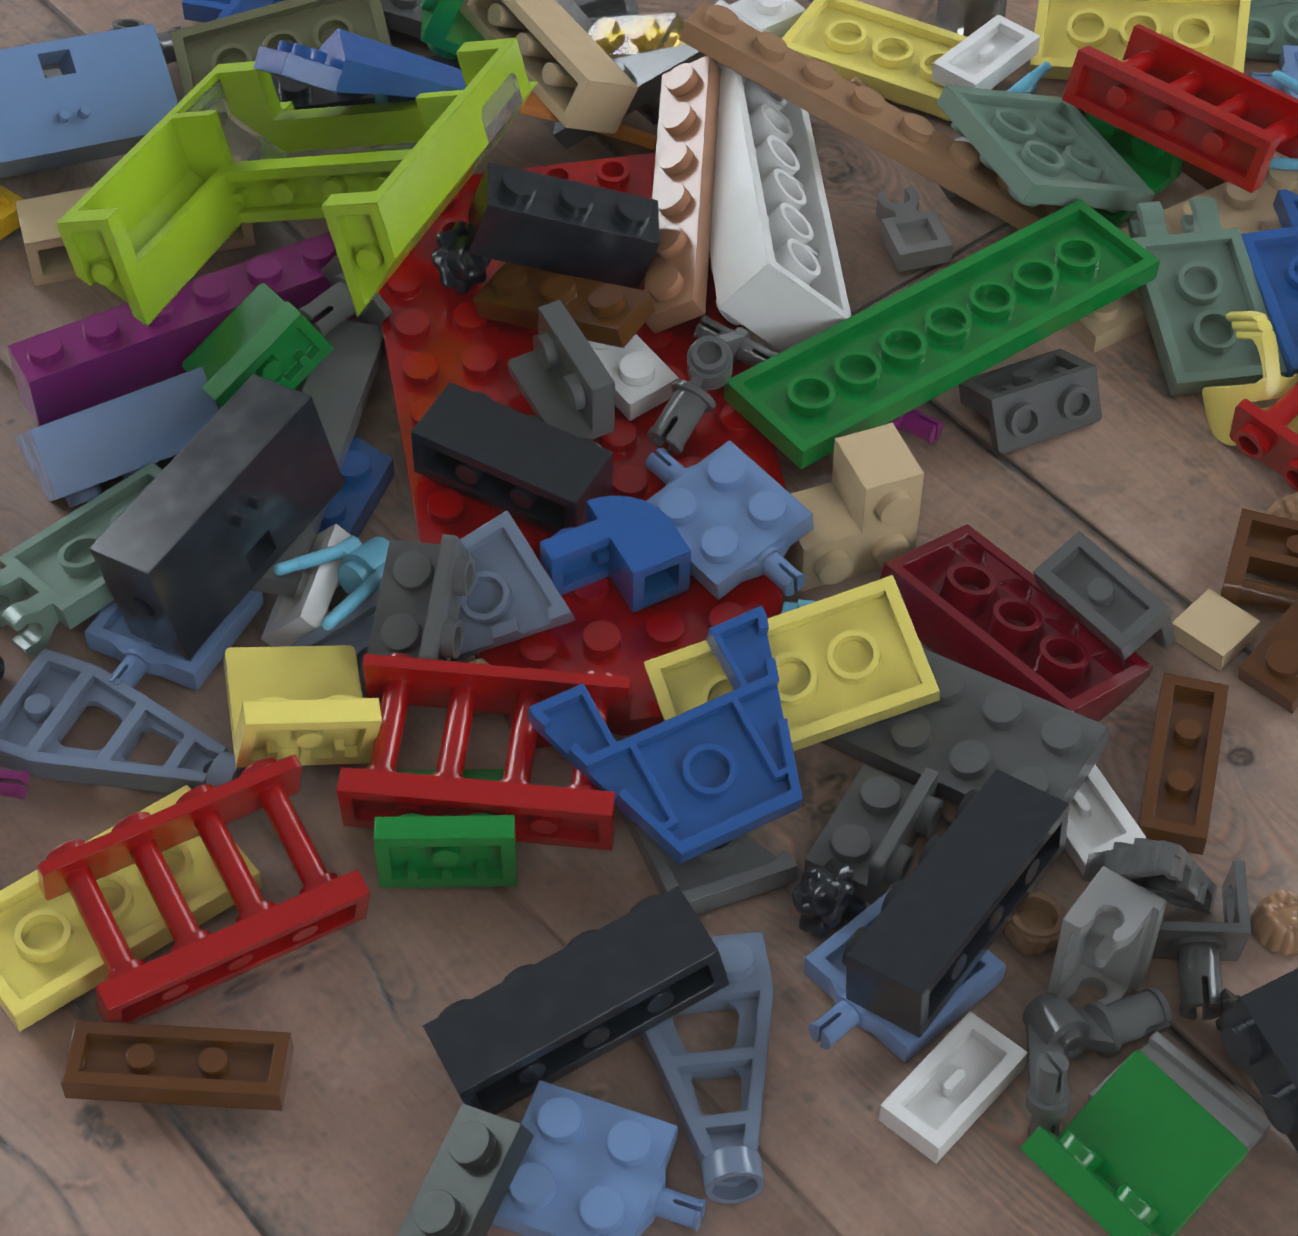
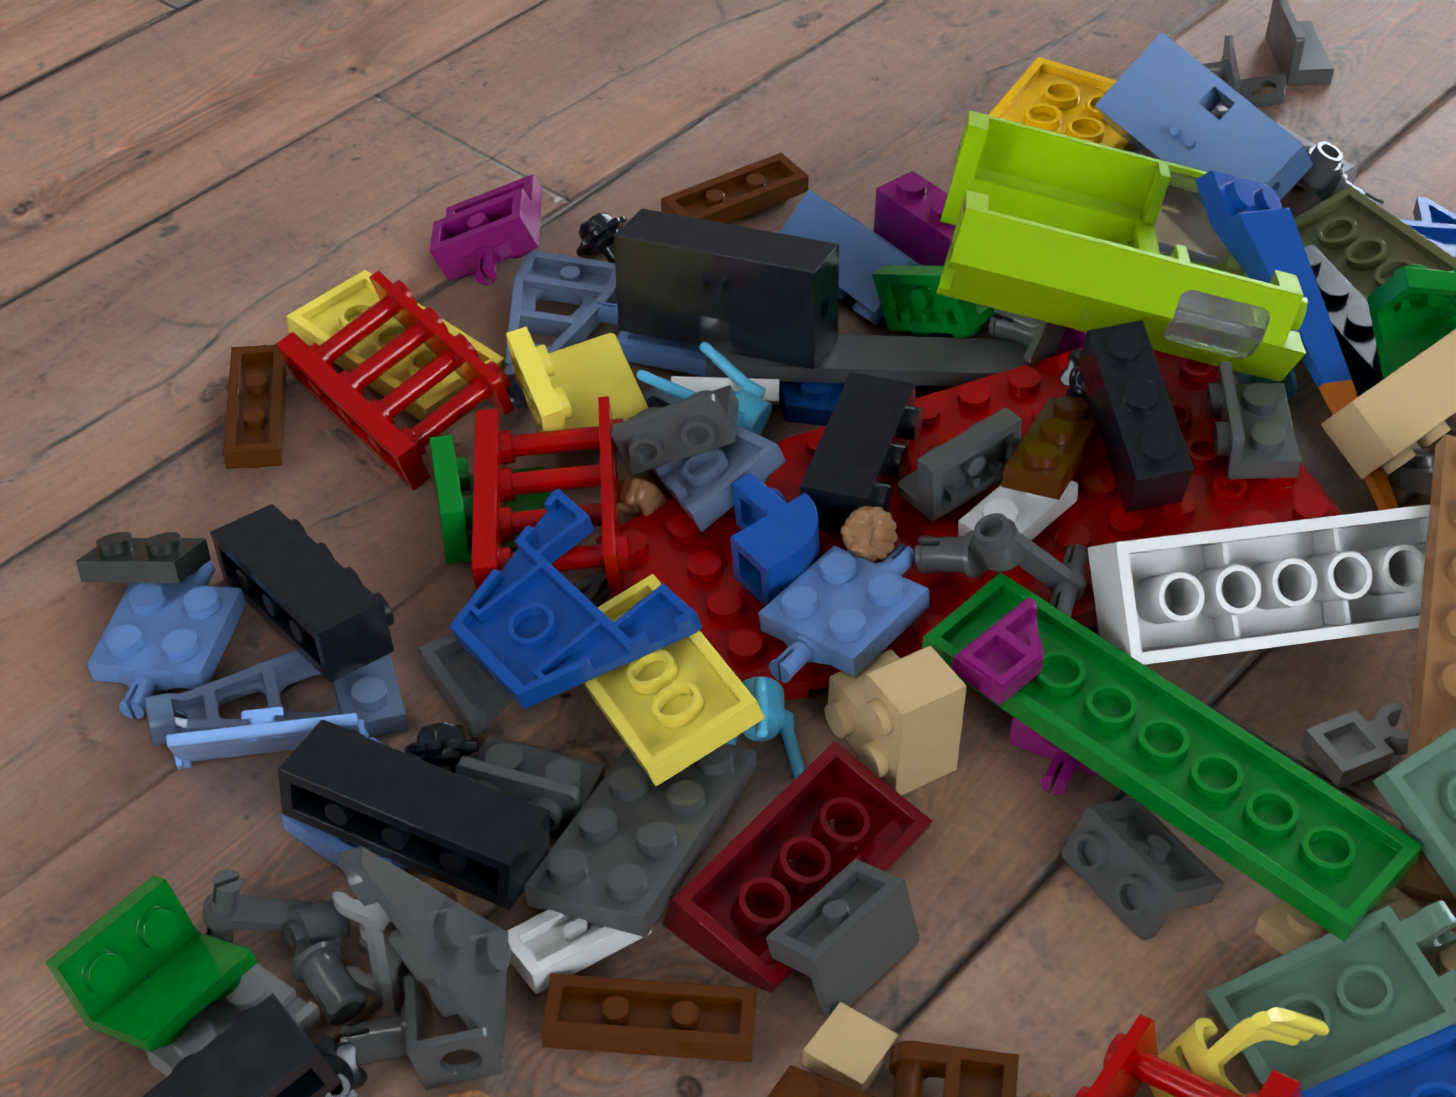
camera: 80 degrees right, 5 degrees down
(569, 158) = (1252, 427): none -> dark grey bracket
(640, 470) = (869, 533): none -> medium nougat piece
(684, 192) = (1232, 507): nougat plate -> none
(808, 1053) = (258, 737): none -> light blue door
(844, 394) = (1004, 655): none -> magenta tile
(952, 1086) = (263, 856): white plate -> none

